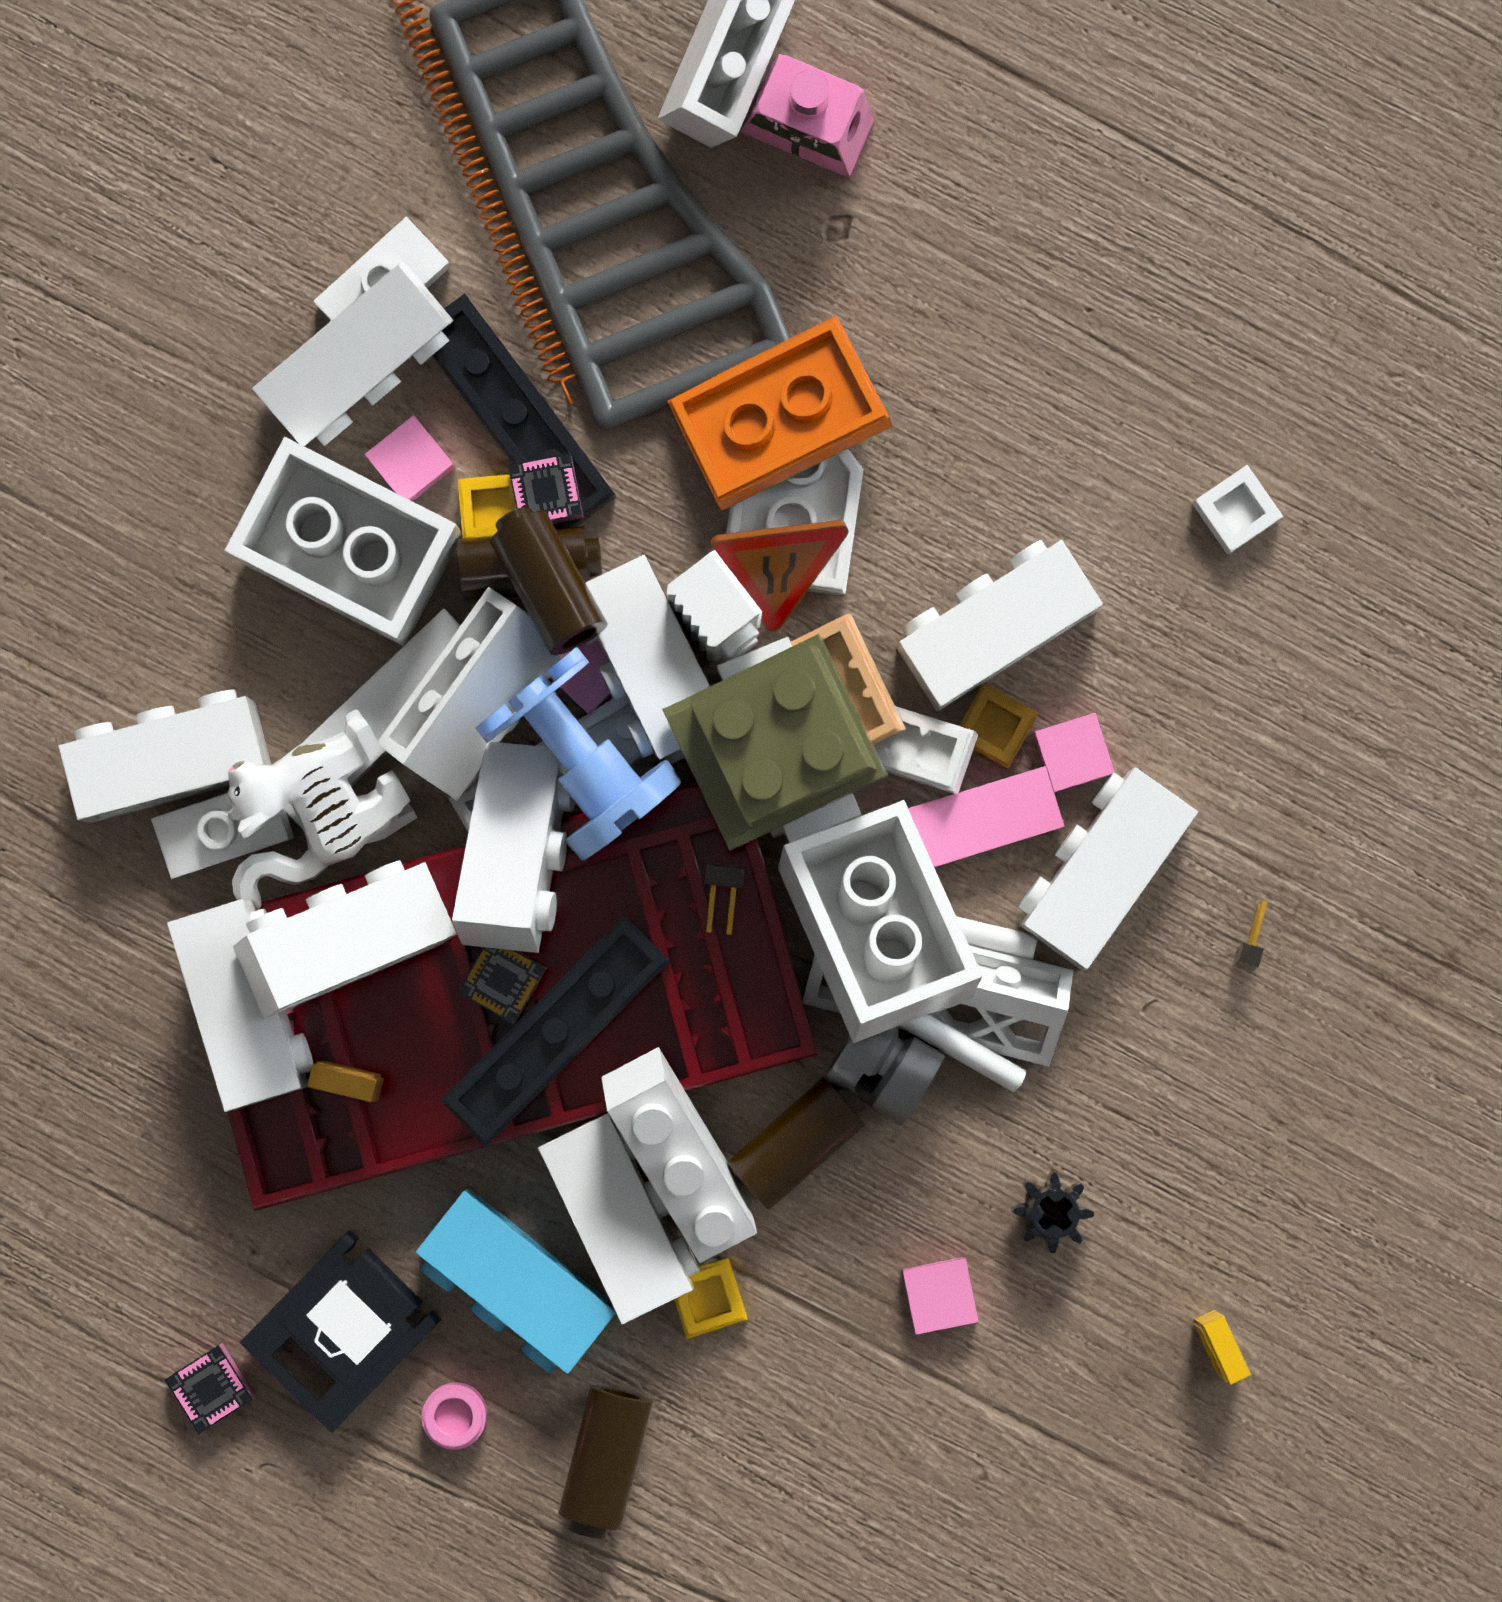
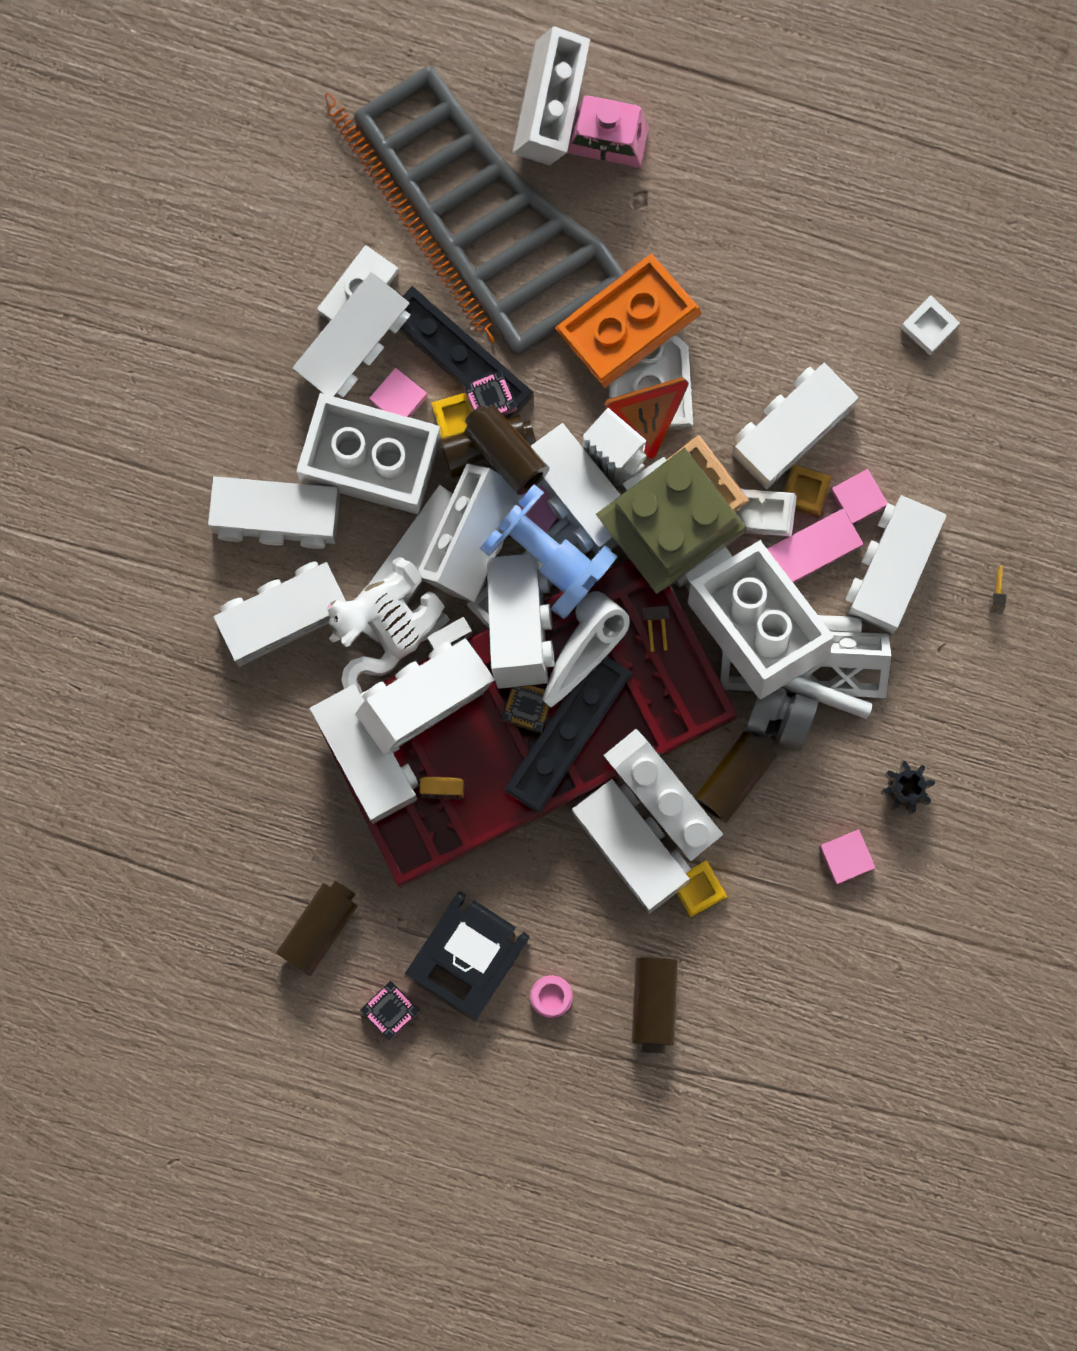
camera: 10 degrees left, 5 degrees down
(125, 1245) = (318, 927): none -> dark brown brick
(185, 601) = (274, 512): none -> white brick
(208, 836) = (319, 656): white plate -> none
(412, 844) = (452, 633): none -> white tile
(515, 1282) = (573, 901): medium azure brick -> none
(619, 900) = (598, 632): none -> white piece
(1221, 1347) = (1034, 852): yellow tile -> none

